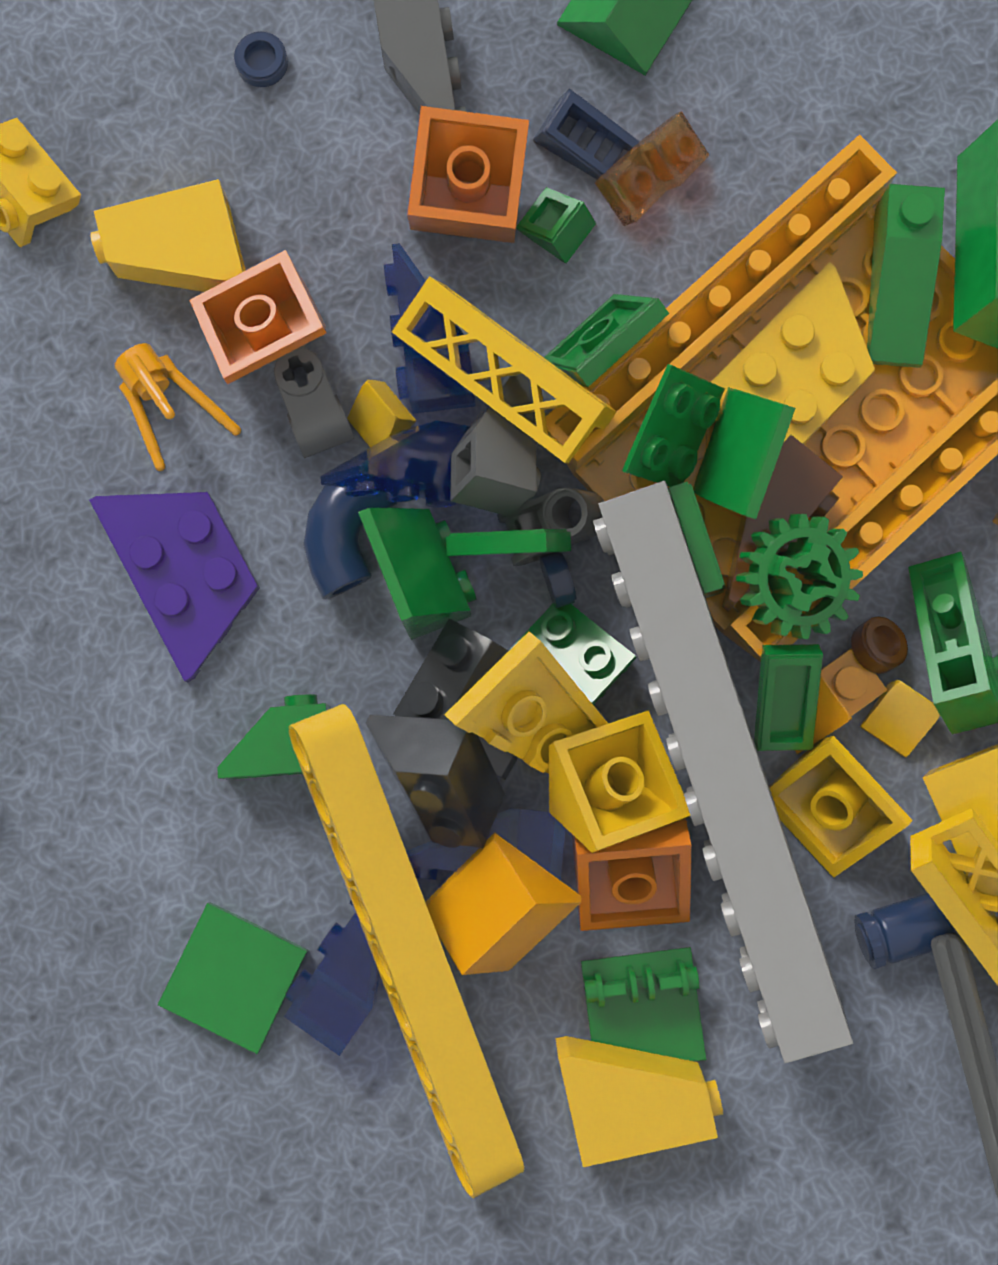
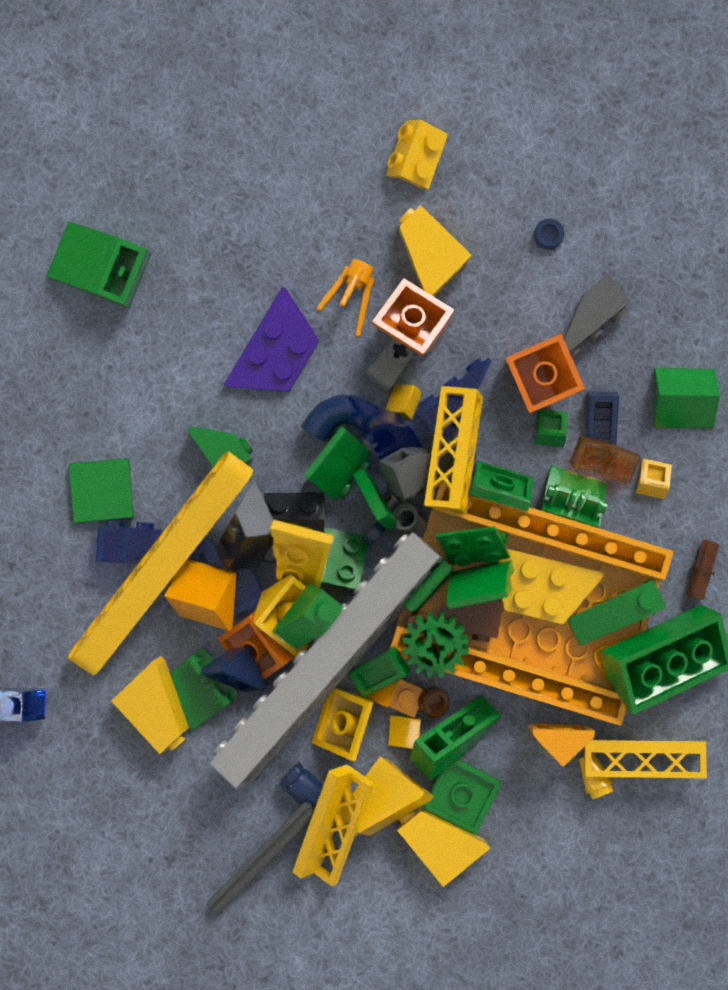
camera: 60 degrees right, 5 degrees up
(636, 754) = (308, 617): none -> green slope
(649, 928) = (236, 669): none -> dark blue slope
(686, 241) = (575, 496): none -> green hinge
(725, 117) = (654, 479): none -> yellow slope
(906, 123) = (703, 569): none -> reddish brown axle

